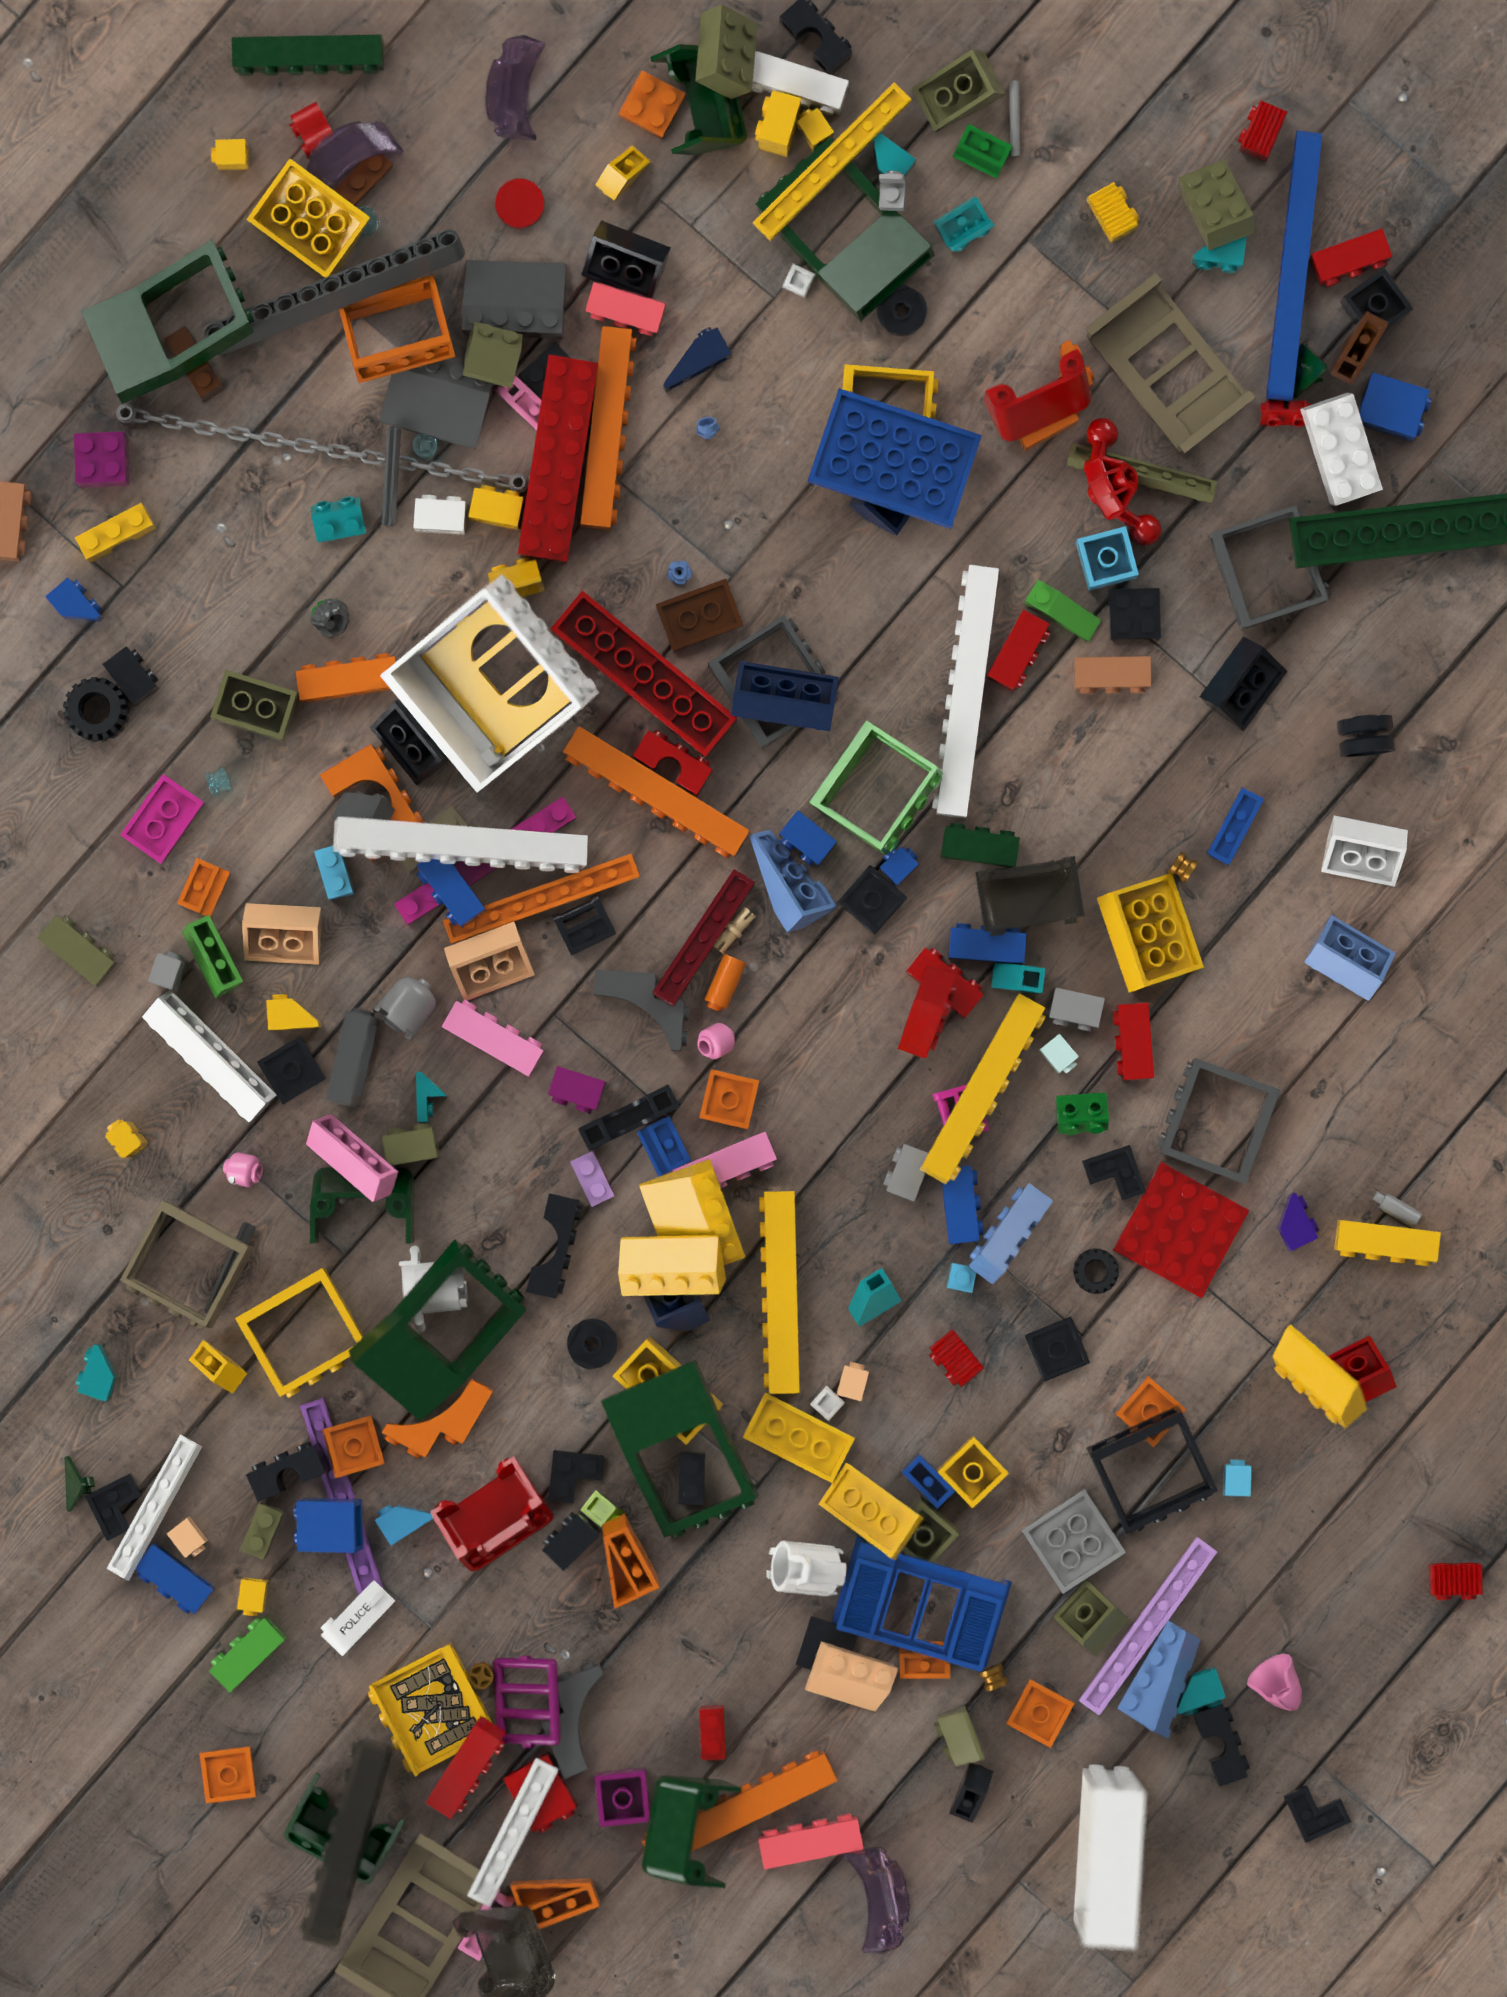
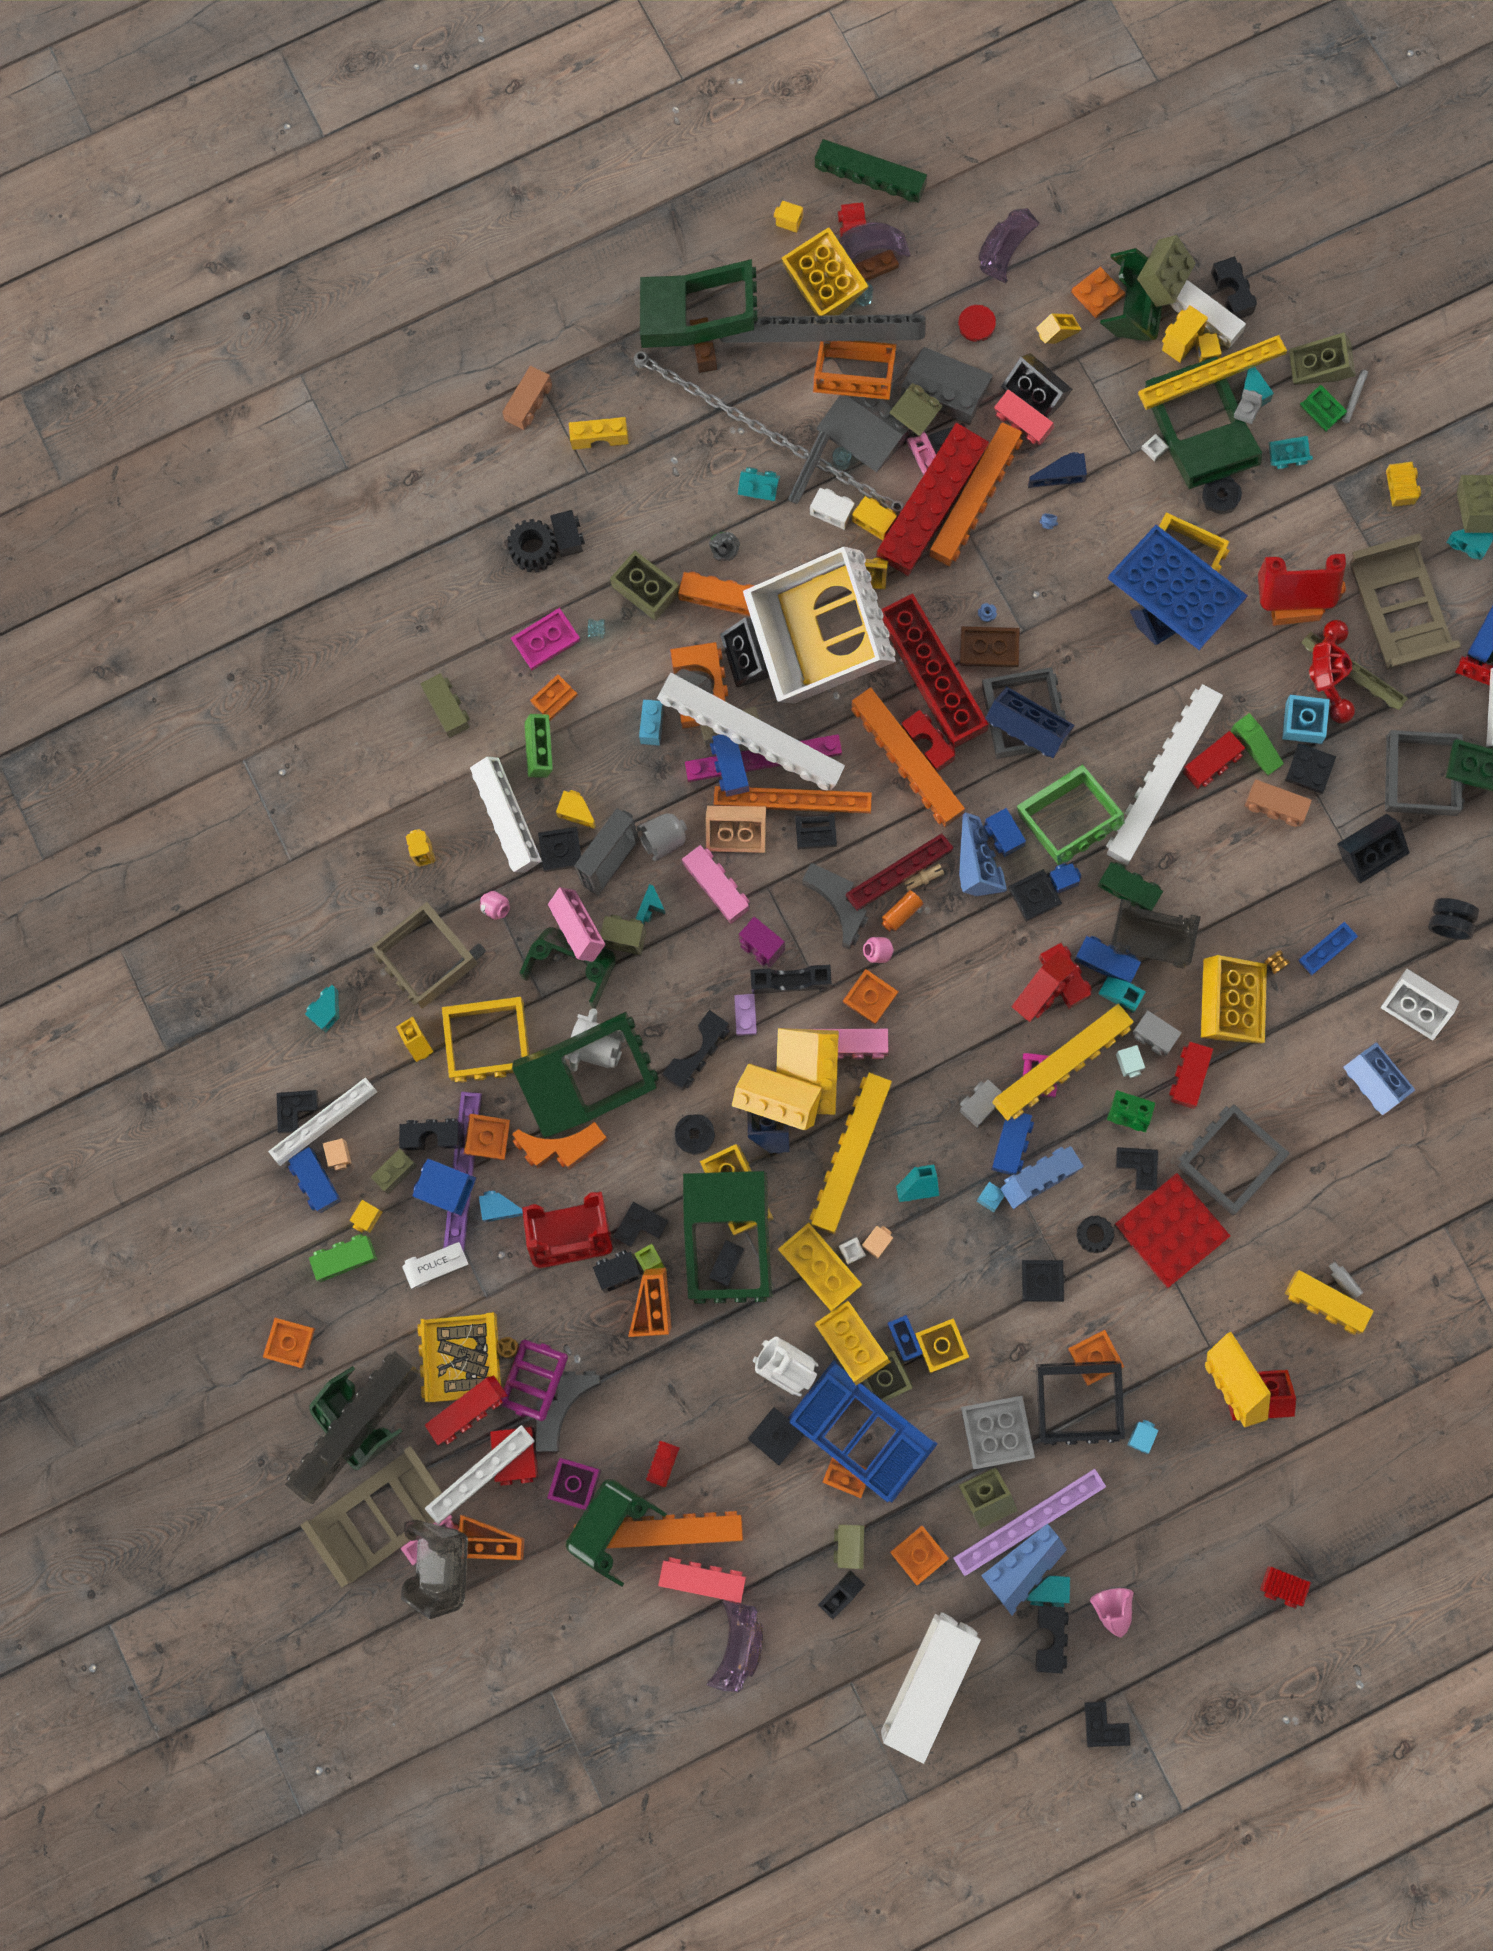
camera: 25 degrees right, 10 degrees down
(72, 603) = (547, 468): blue slope -> none
(75, 1484) = (274, 1082): dark green piece -> none
(101, 459) = (610, 381): magenta brick -> none
(168, 970) = (502, 742): light grey brick -> none
(282, 933) = (595, 750): light nougat slope -> none
(663, 1146) = (808, 1010): blue plate -> none
(851, 1677) = (785, 1465): light nougat slope -> none
(956, 1358) = (963, 1256): red brick -> none
(993, 1677) = (894, 1512): pearl gold wheel -> none
(1295, 1225) = (1262, 1262): dark purple slope -> none

